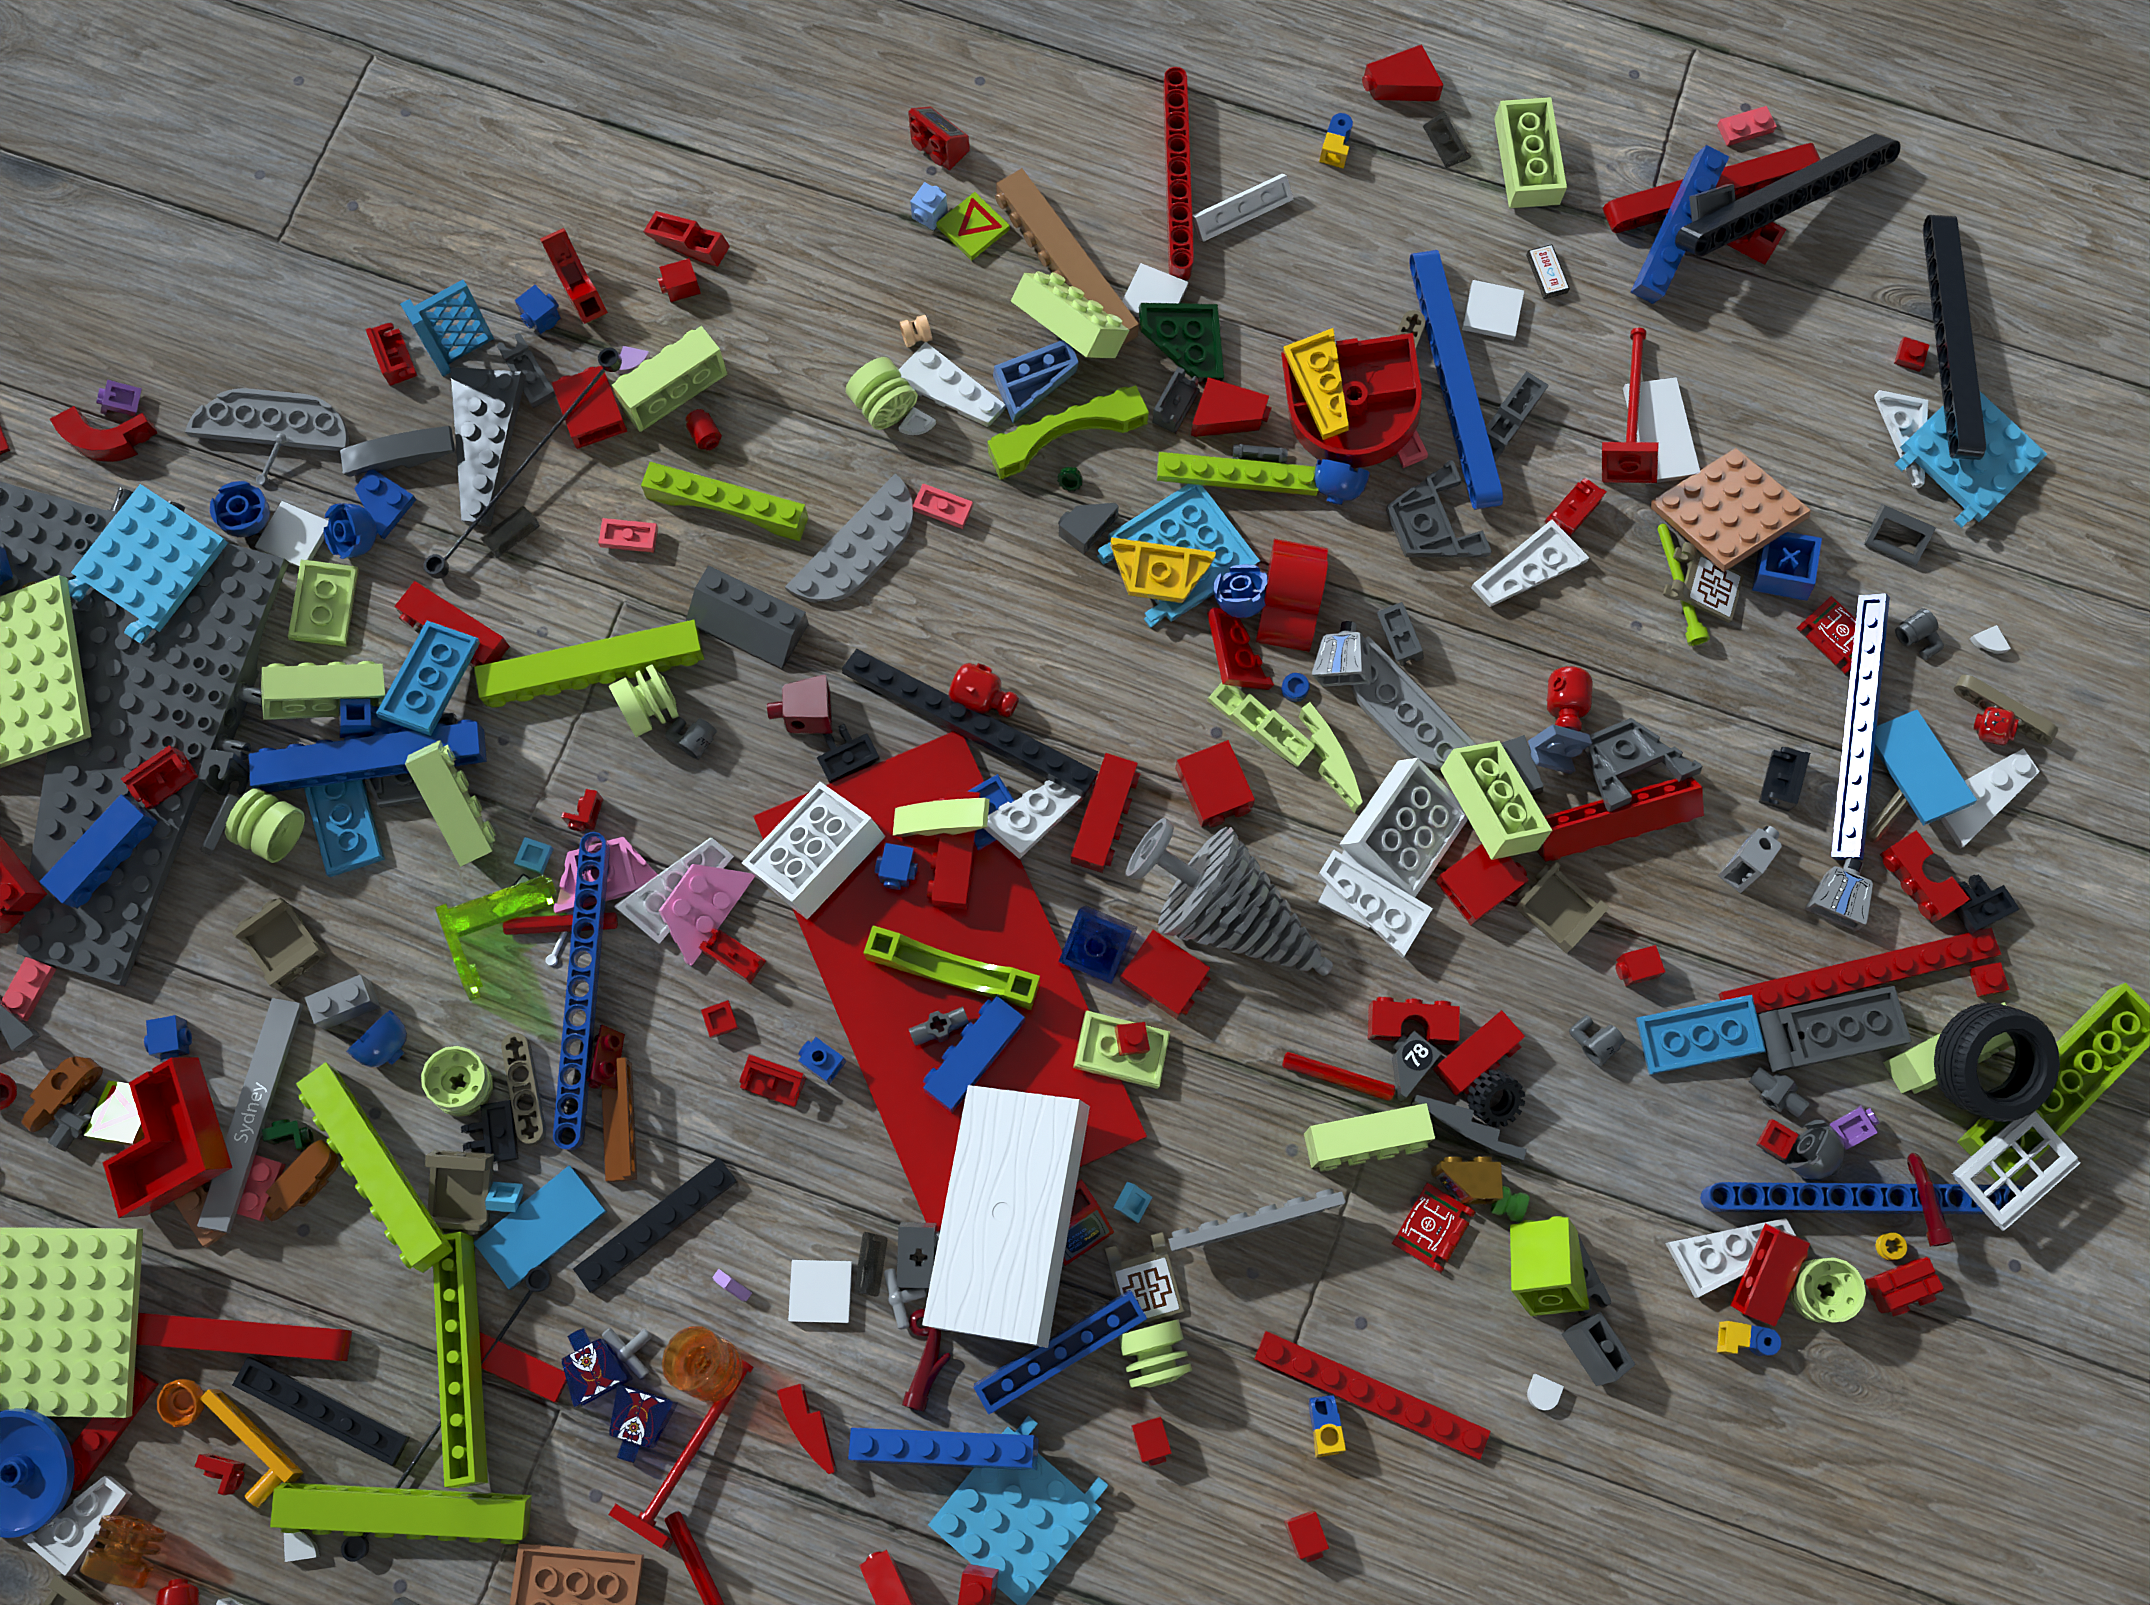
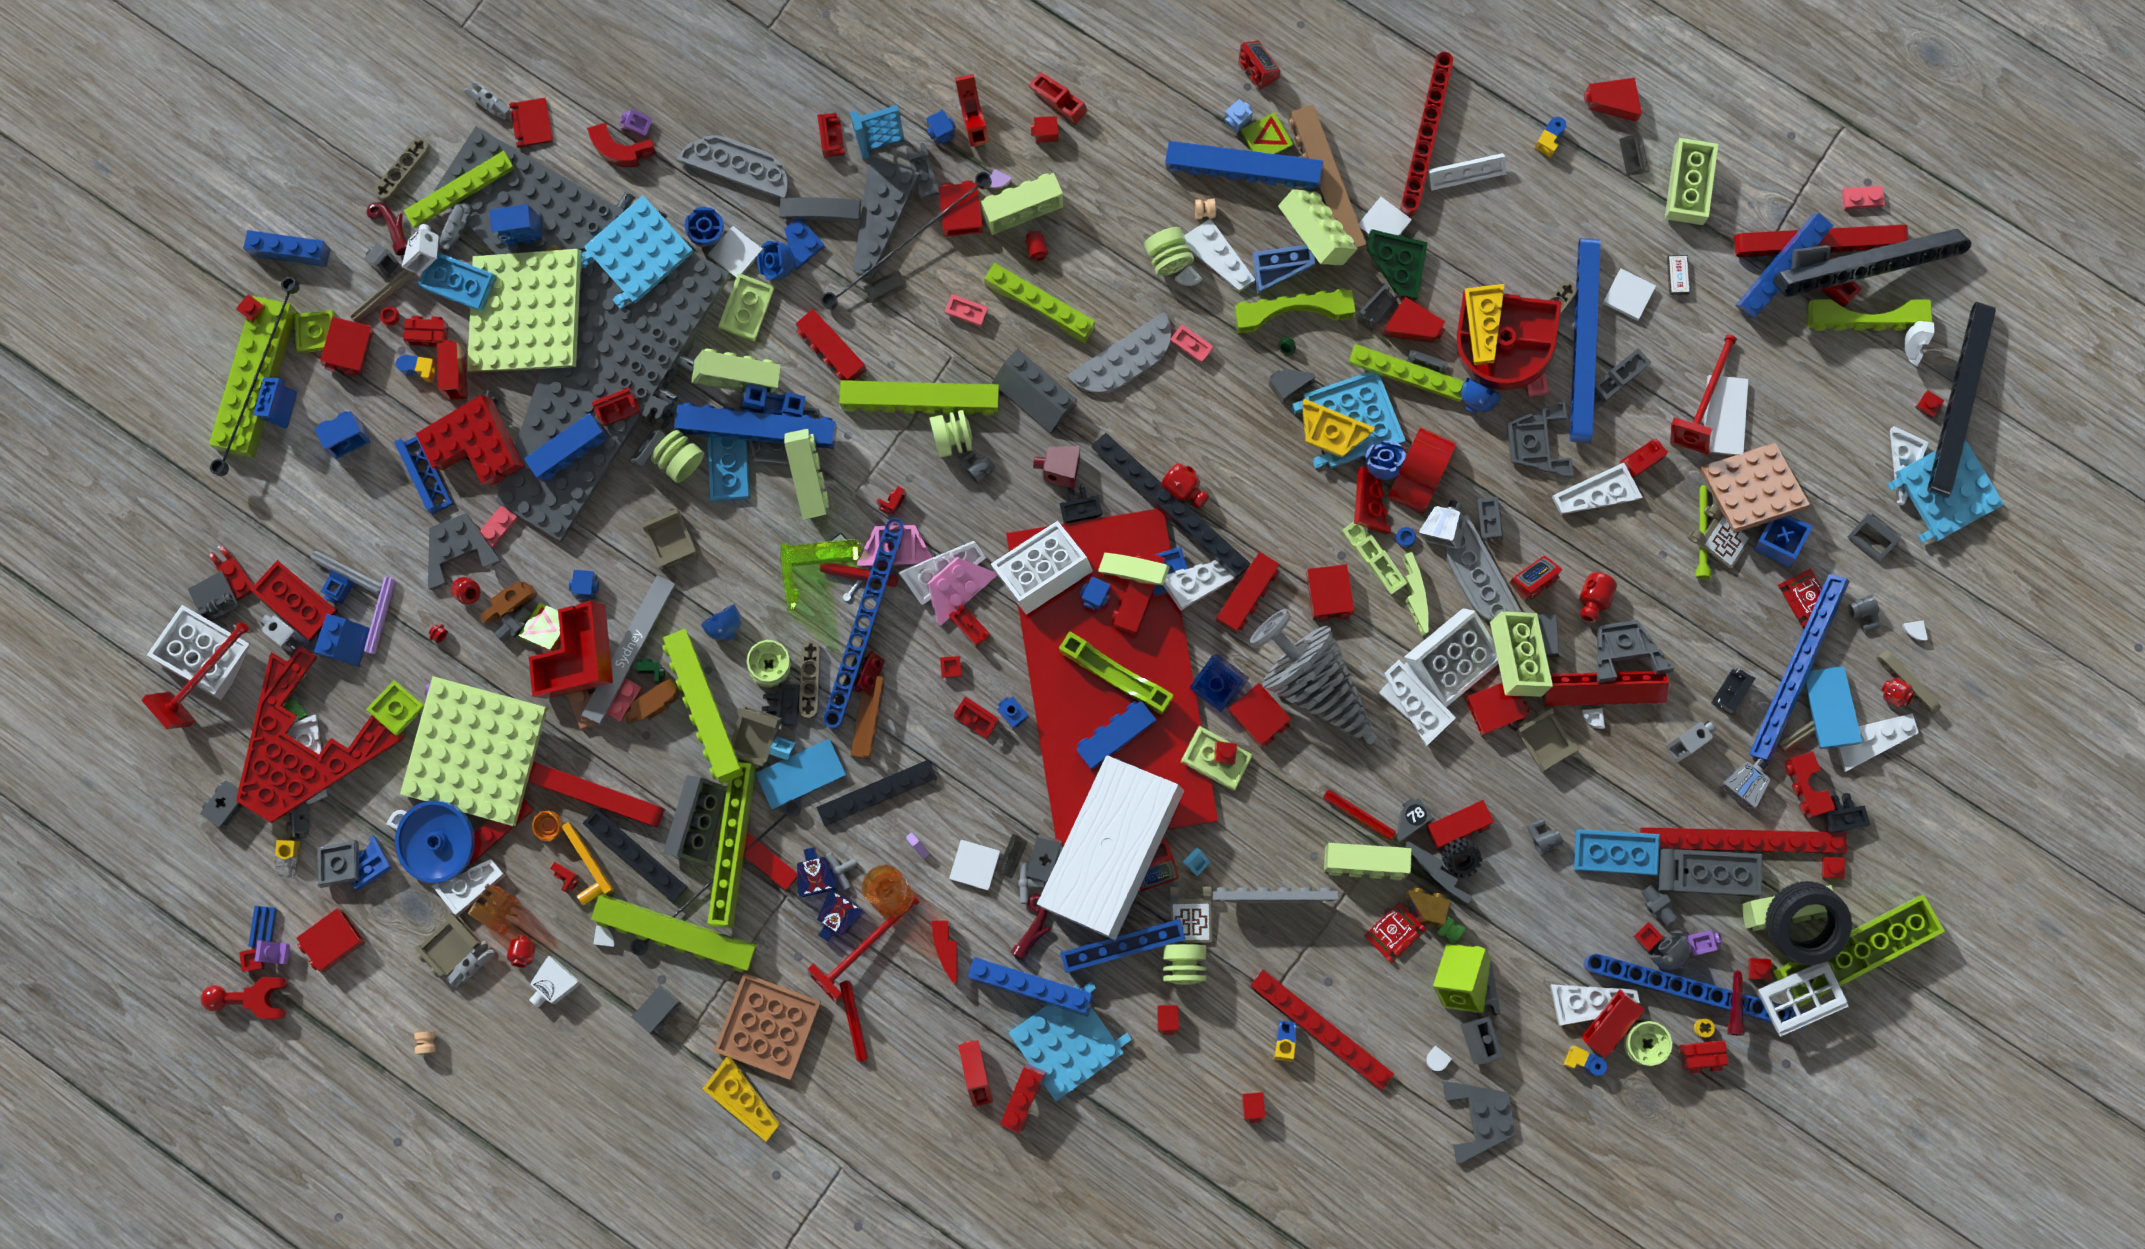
camera: 20 degrees right, 5 degrees up
(262, 479) = (722, 205): light grey hinge -> none
(342, 1002) = (703, 590): light grey brick -> none
(401, 1337) = (697, 821): none -> dark grey slope
(428, 678) = (808, 381): dark azure tile -> none
(533, 855) = (851, 522): medium azure plate -> none
(952, 262) = (1244, 165): none -> blue brick
(954, 1020) = (1084, 712): dark grey axle -> none
(1438, 1019) = (1438, 795): red arch -> none
(1484, 696) = (1536, 576): none -> red slope
(1556, 746) = (1576, 628): sand blue bracket -> none
(1613, 861) = (1594, 717): none -> white tile
(1639, 965) = (1589, 794): red brick -> none
(1639, 1455) = (1489, 1115): none -> dark grey wing
(1754, 274) = (1829, 314): none -> lime arch
(1872, 273) = (1915, 338): none -> white cylinder
(1938, 1143) = (1759, 969): none -> red plate

